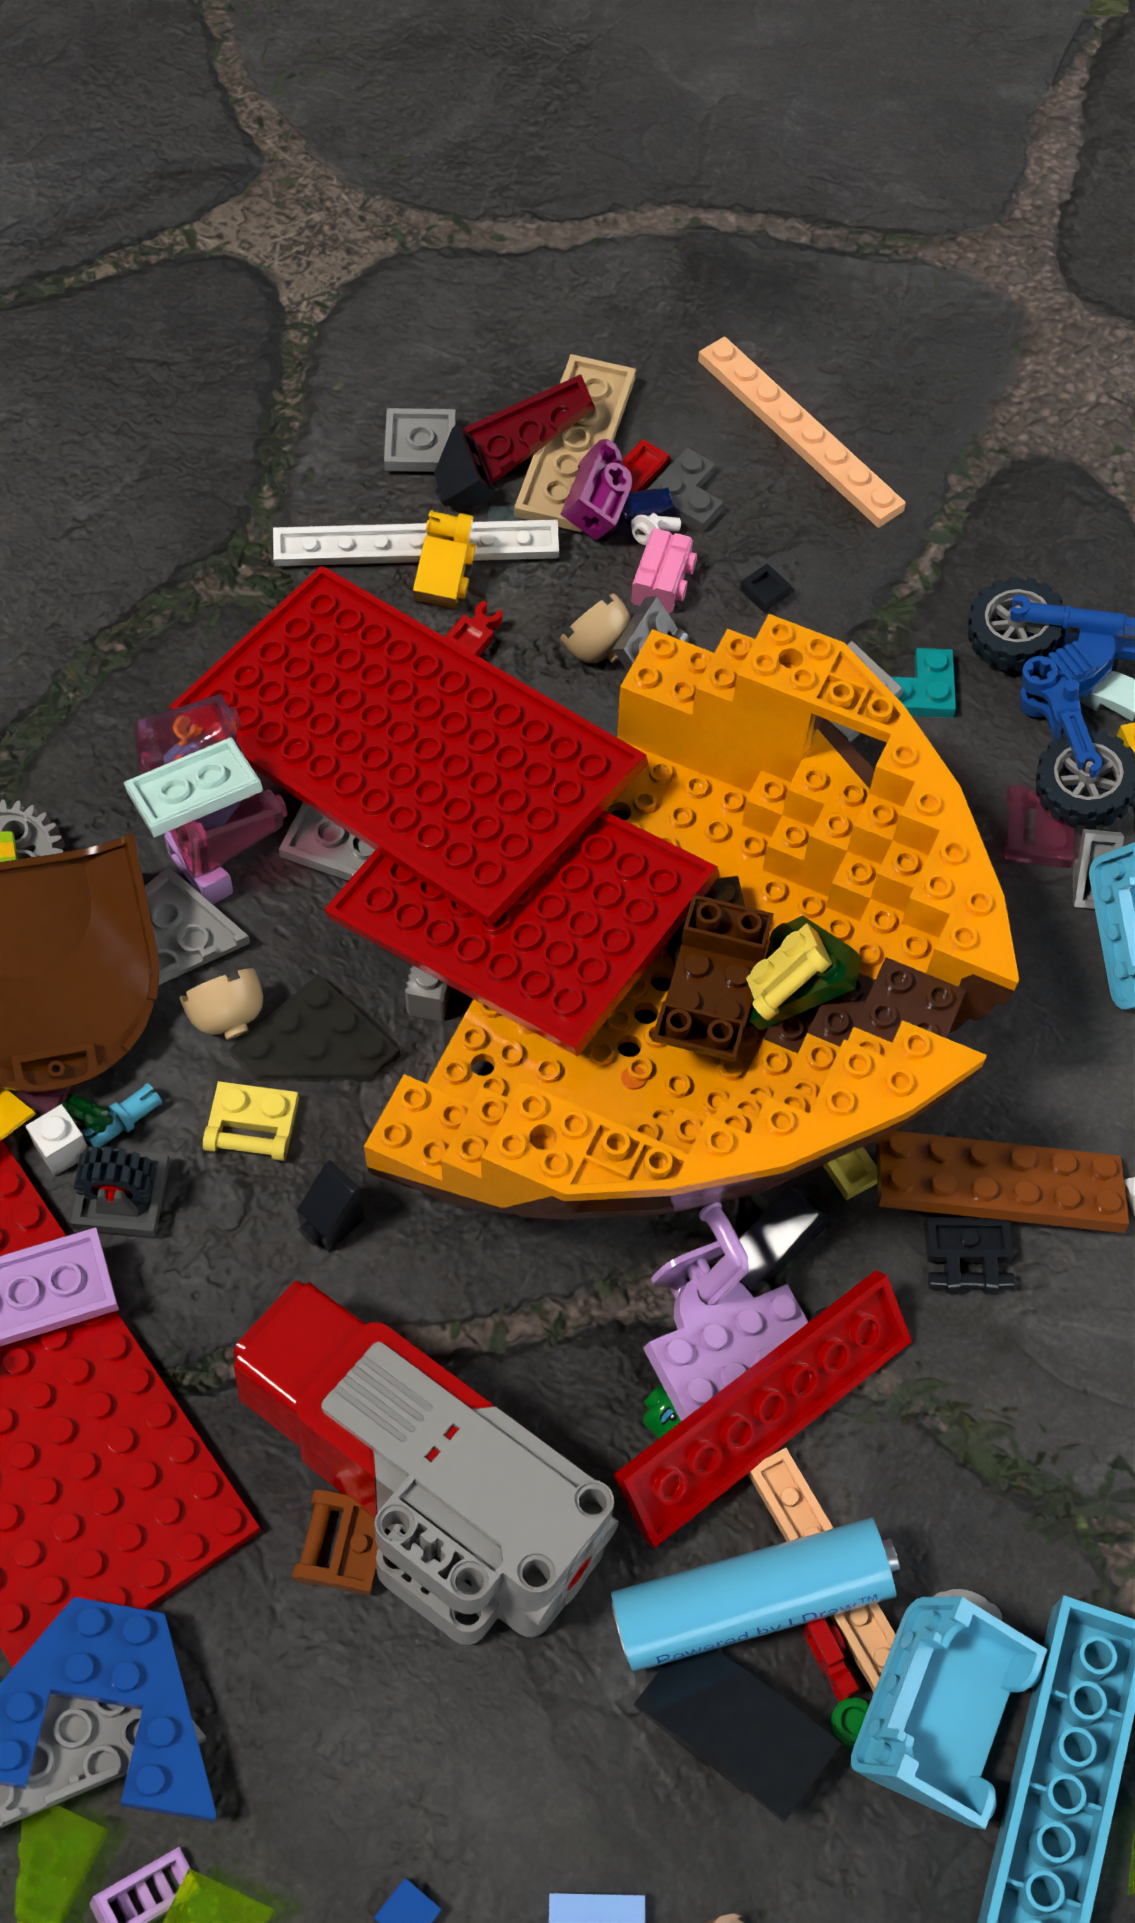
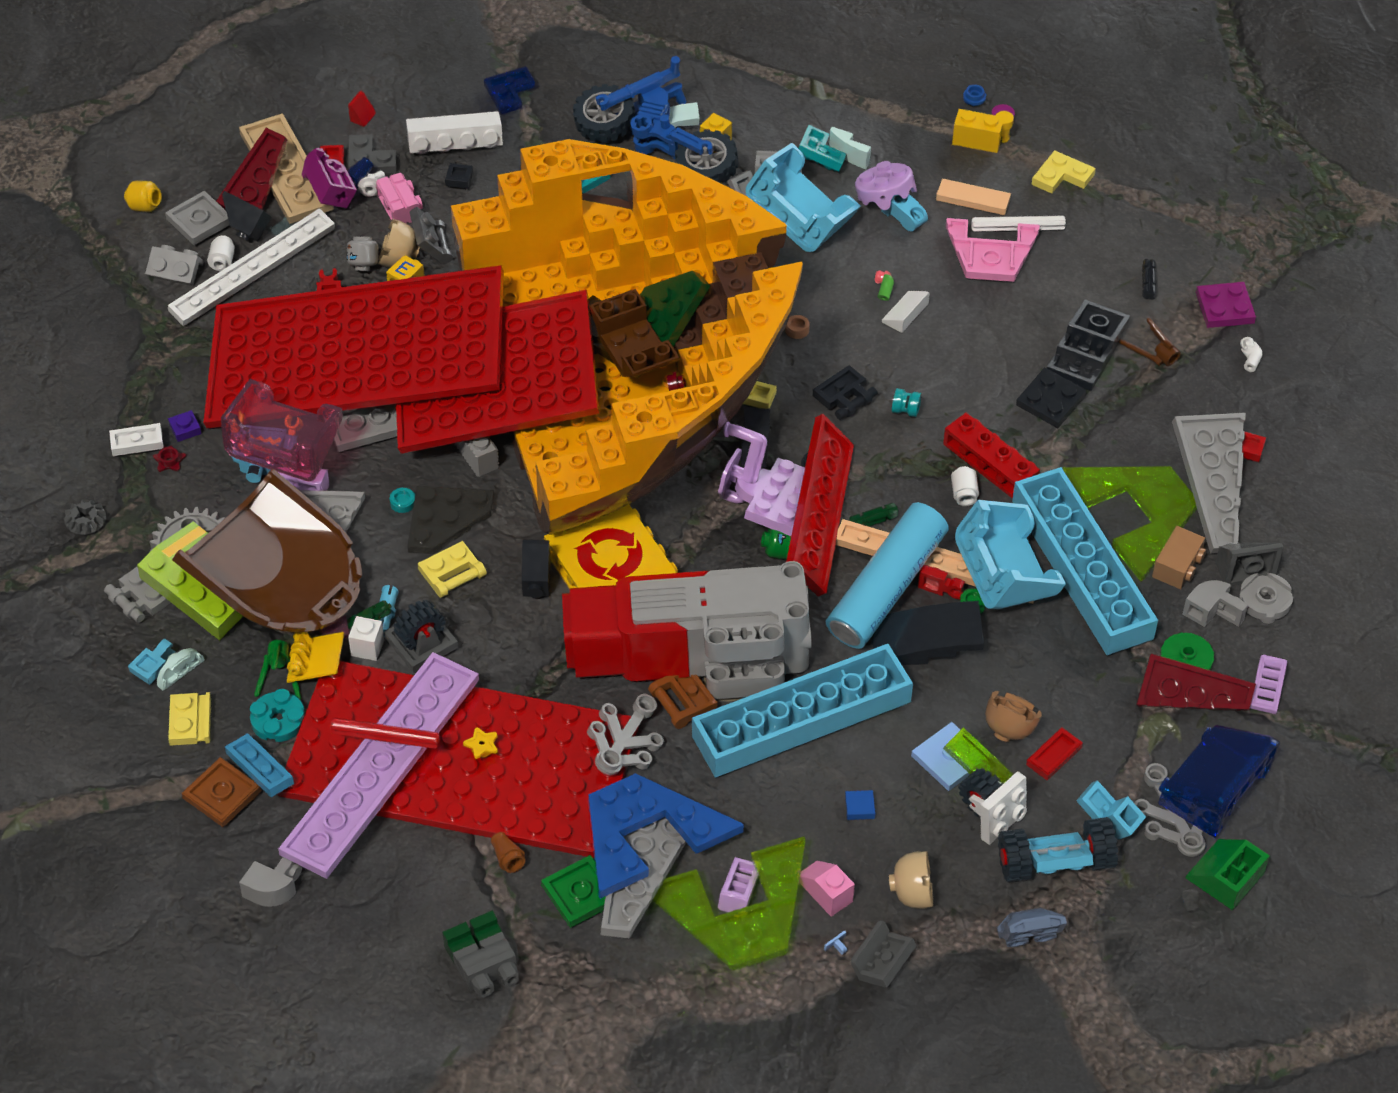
camera: 40 degrees left, 10 degrees down
(41, 1413) = (478, 749): none -> yellow plate
(81, 674) = (136, 439): none -> white plate
(95, 716) = (169, 453): none -> dark red plate
(151, 694) = (184, 426): none -> dark purple plate
(193, 786) = (279, 430): light aqua tile -> none
(201, 1546) = (642, 708): none -> light grey plant
(225, 1004) = (387, 526): tan cylinder -> none
(287, 978) = (402, 500): none -> teal tile
(335, 480) = (173, 265): none -> light grey bracket
(384, 370) = (142, 196): none -> yellow head
(399, 501) = (221, 253): none -> white brick
(439, 1270) = (607, 550): none -> yellow panel
(444, 560) = (281, 261): yellow hinge -> none
(458, 1703) = (801, 710): none -> medium azure brick
(550, 612) = (362, 253): none -> light grey head
(574, 678) = (405, 268): none -> yellow brick
(719, 1084) = (676, 381): none -> dark red plate
(732, 422) = (361, 109): none -> red slope
(787, 970) = (668, 304): light yellow plate -> none
(802, 432) = (398, 93): light nougat plate -> none
(810, 526) = (454, 132): none -> white brick
(838, 1474) = (876, 515): none -> dark green axle
(932, 504) = (505, 86): none -> clear blue plate
(997, 1104) = (797, 327): none -> nougat tile
(1001, 1181) = (831, 352): dark orange plate -> none
(1003, 1531) = (965, 486): none -> white brick
(1031, 1331) = (901, 399): none -> teal wheel
(1082, 1513) = (988, 453): none -> red brick

